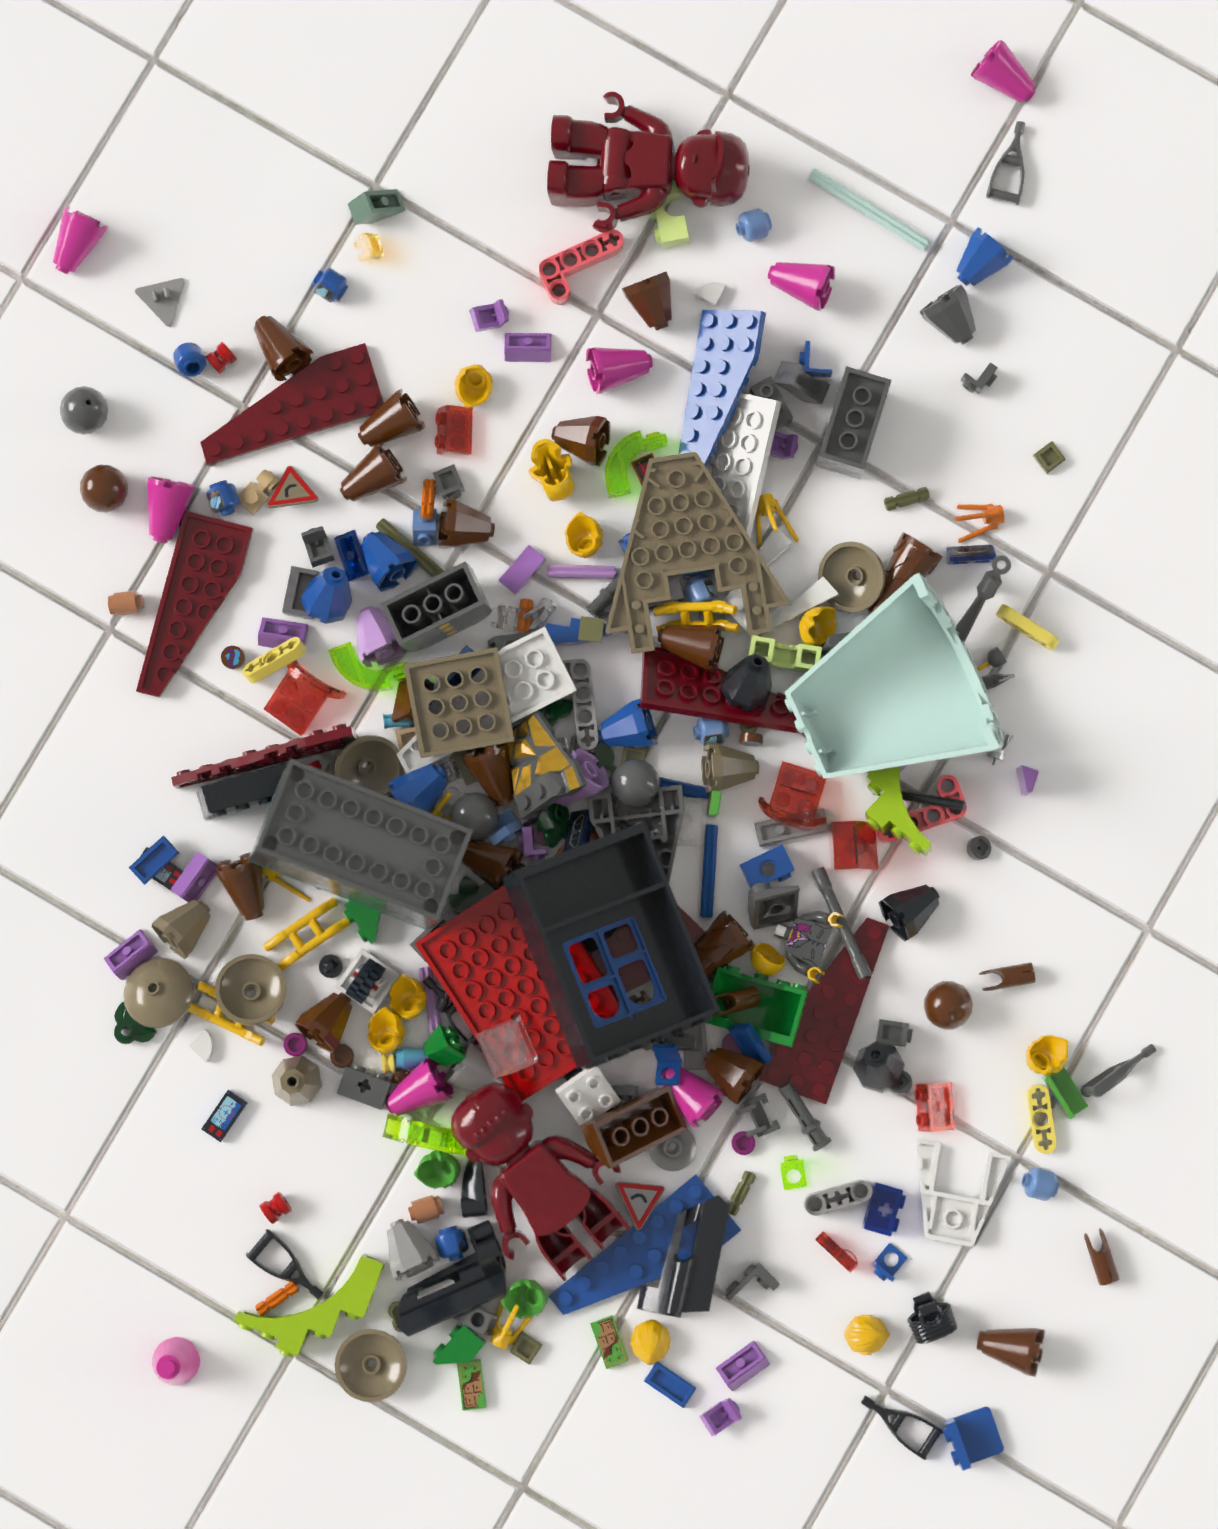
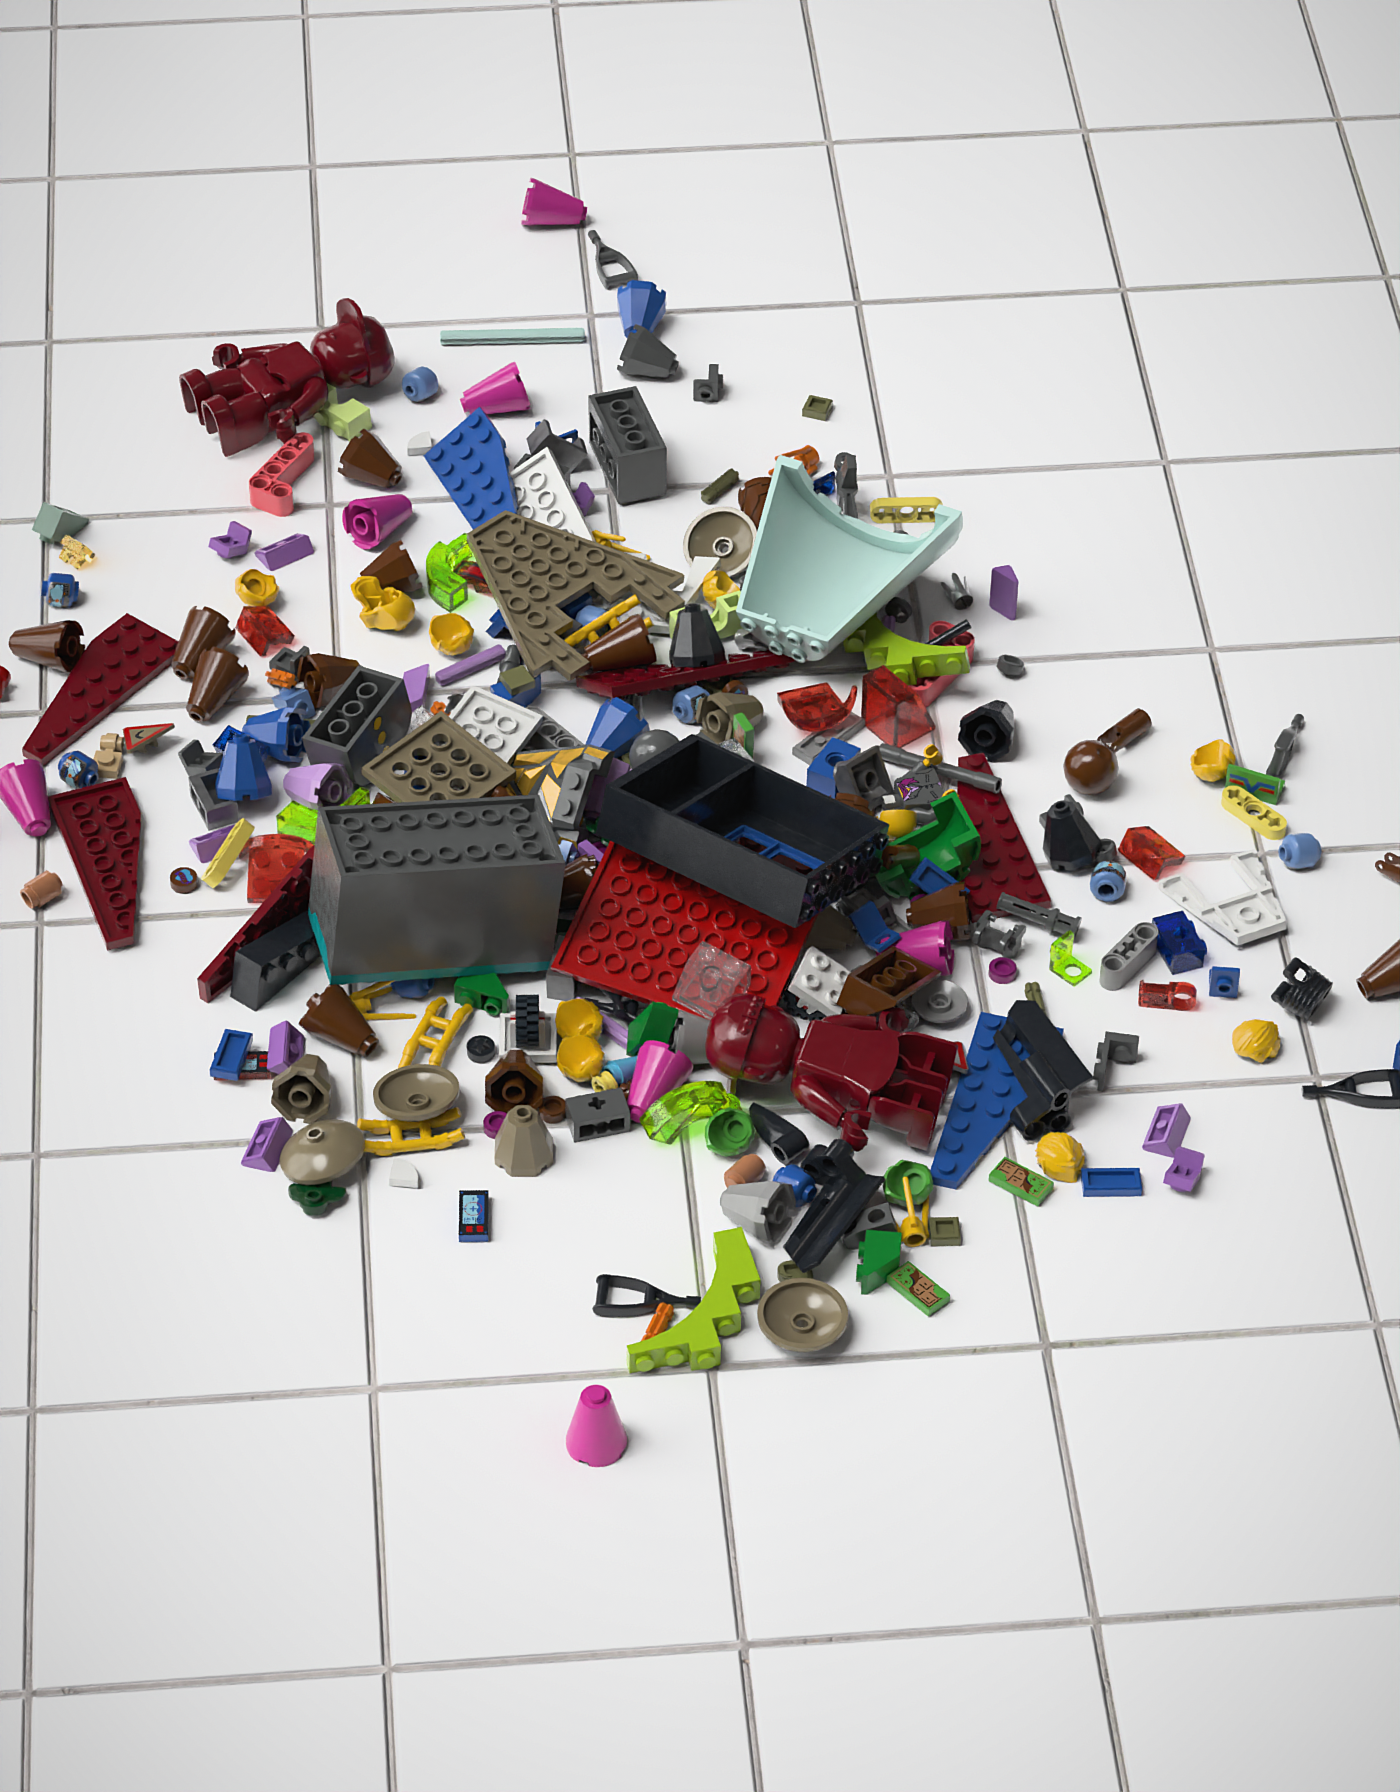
camera: 40 degrees left, 40 degrees down
(275, 1207) = (590, 1254): red wheel -> none
(879, 1116) = (1108, 881): none -> medium blue head

